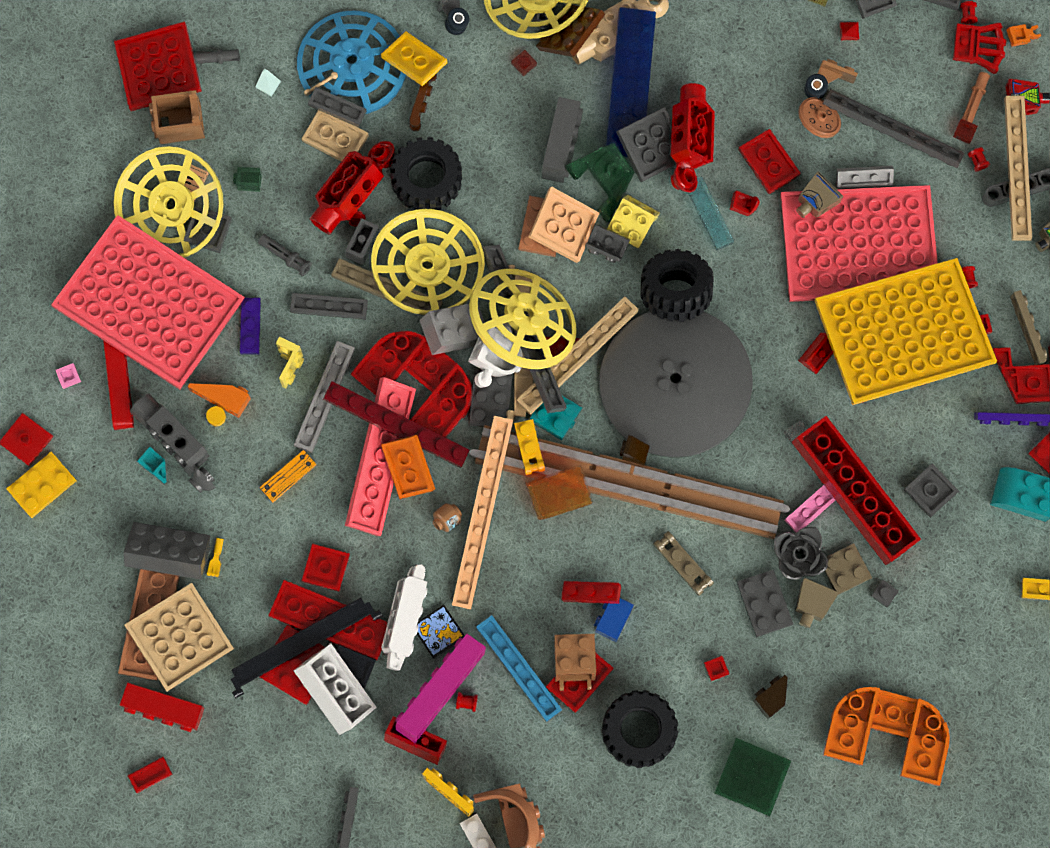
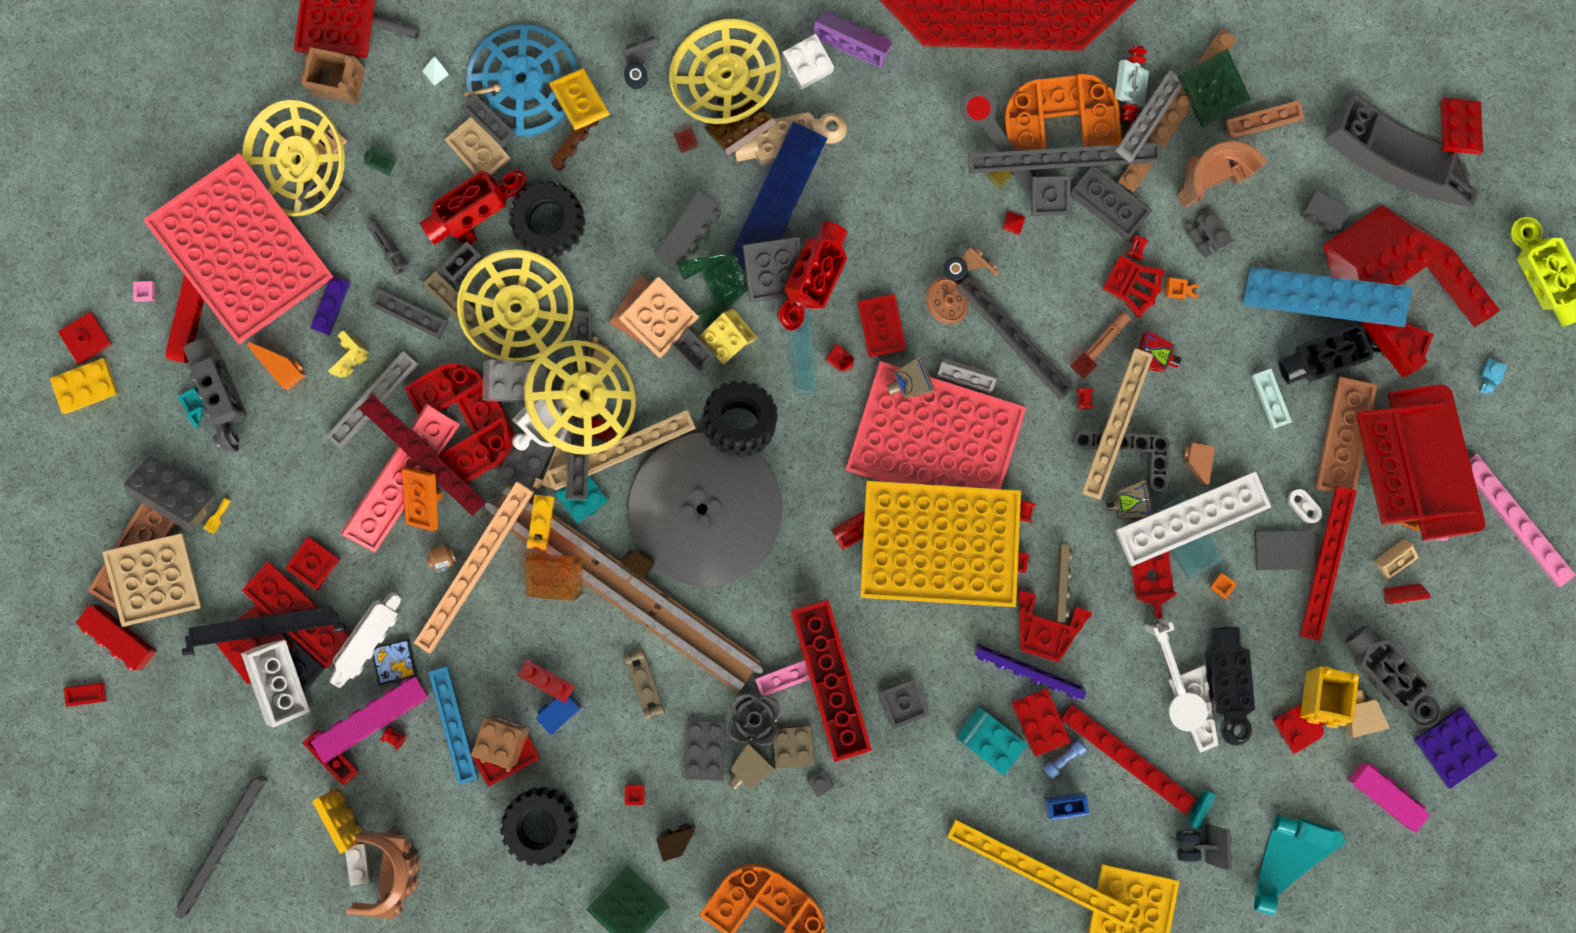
camera: 30 degrees right, 10 degrees up
(216, 416) = (266, 381): yellow tile -> none
(288, 476) = (311, 463): light orange tile -> none

